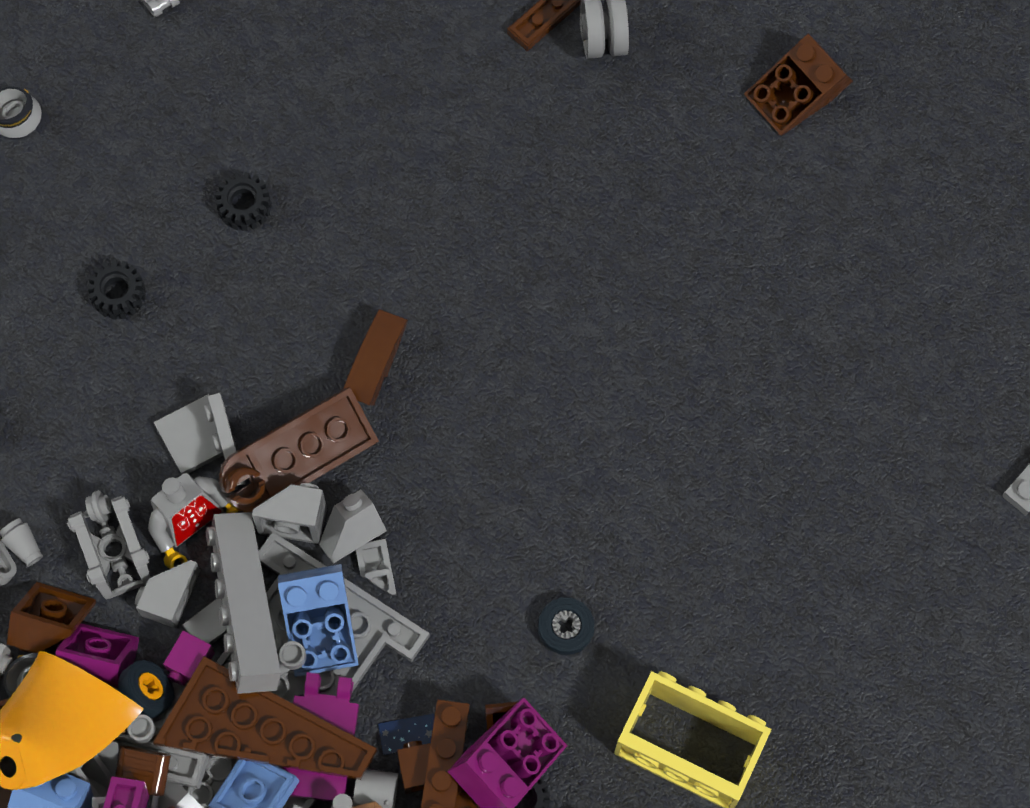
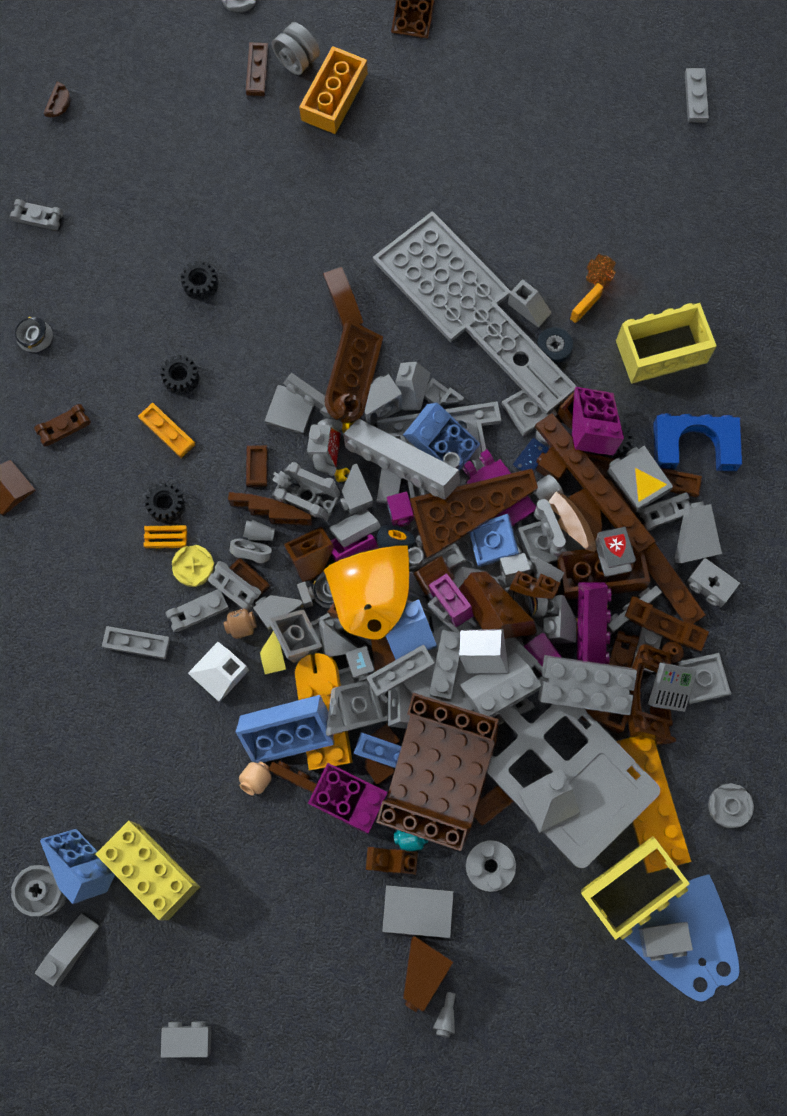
camera: 40 degrees left, 5 degrees up
(43, 340) = (166, 430): none -> light orange tile
(59, 537) = (277, 511): none -> reddish brown slope
(96, 466) = (257, 466): none -> reddish brown tile
(121, 634) = (355, 527): none -> light grey tile
(462, 674) = (524, 412): none -> light grey tile
(511, 470) = (463, 296): none -> light grey piece
(580, 550) = (529, 303): none -> light grey slope
(603, 107) = (333, 90): none -> light orange brick
(651, 609) = (586, 303): none -> light orange tile
(702, 594) = (601, 270): none -> clear orange brick

